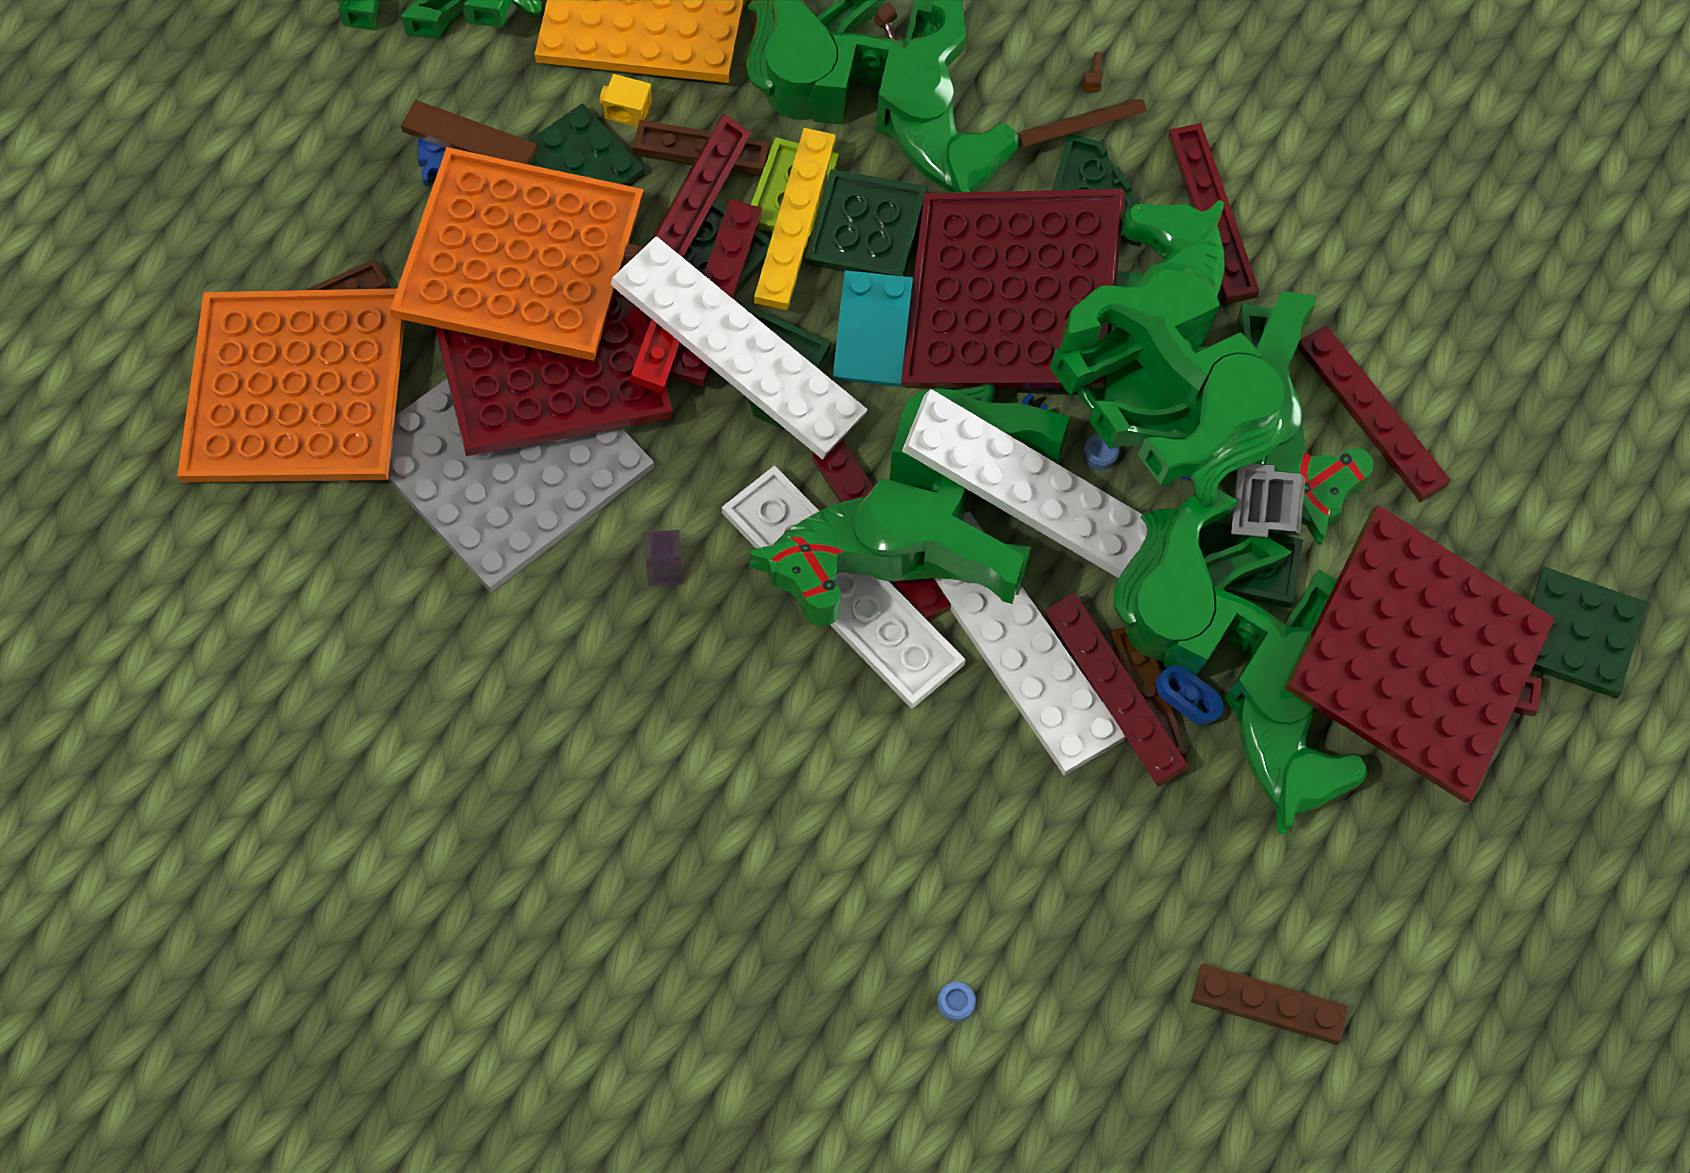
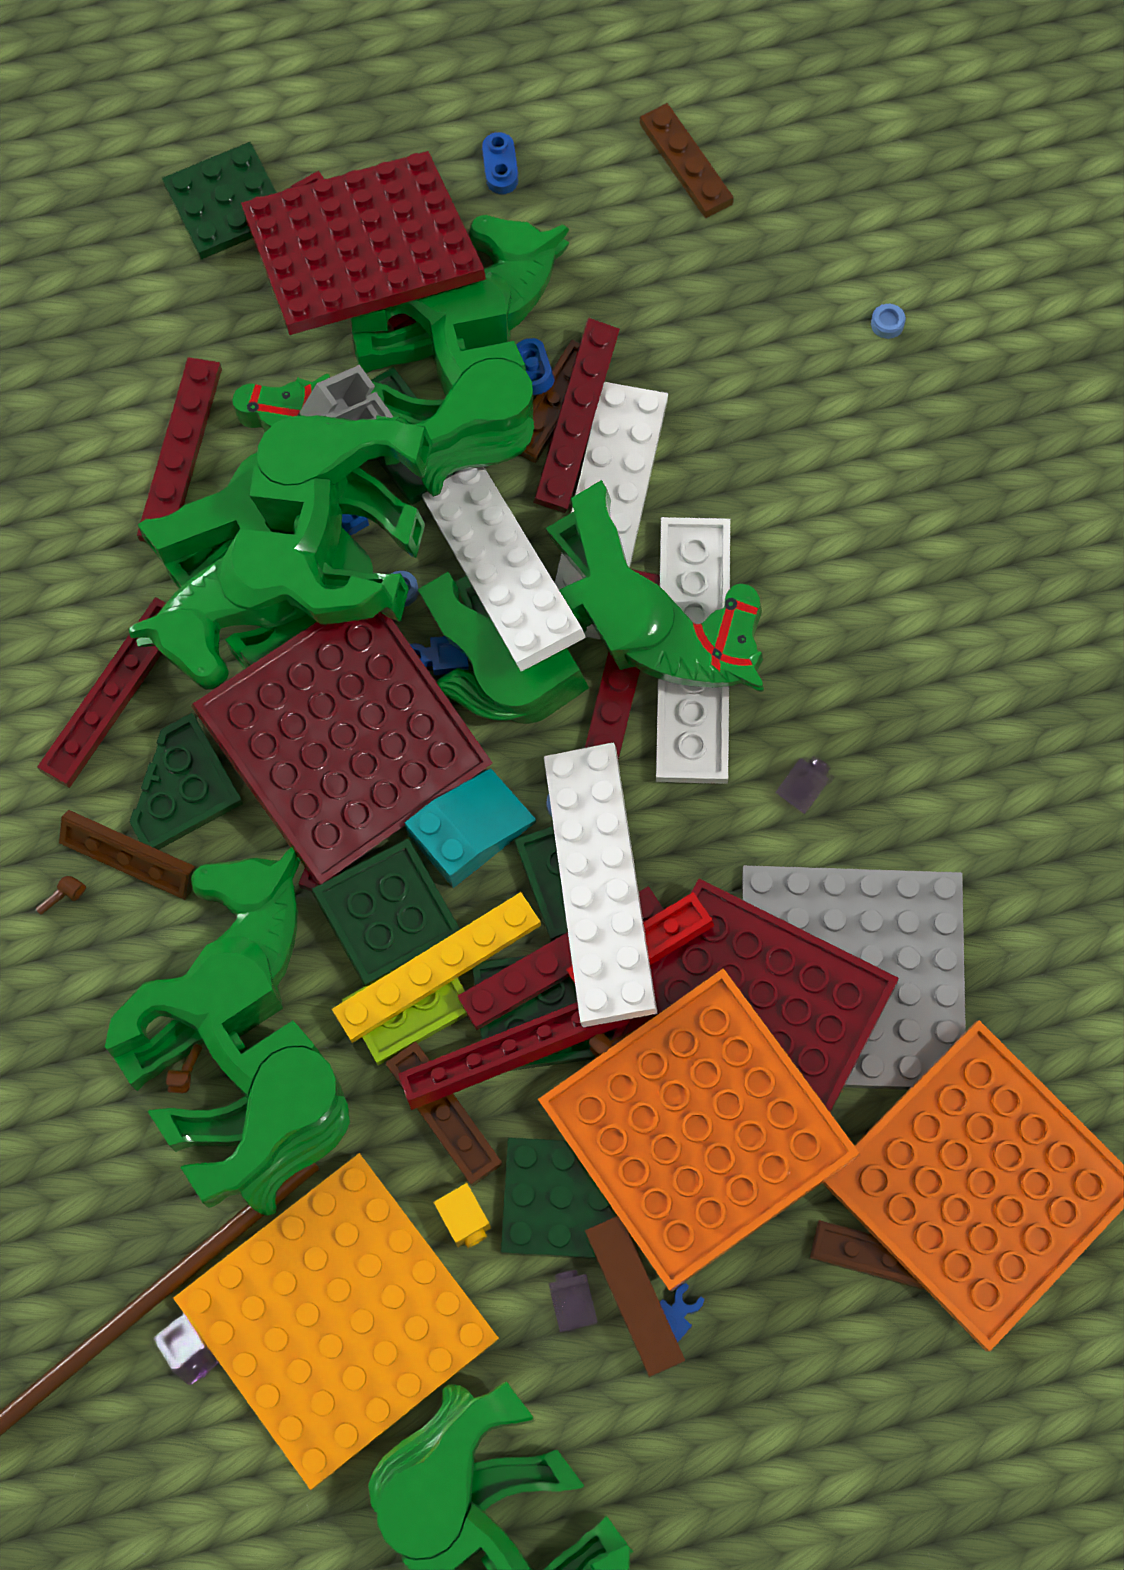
camera: 130 degrees left, 5 degrees up
(508, 114) = (572, 1301): none -> clear purple bracket
(1411, 862) = (500, 160): none -> blue plate

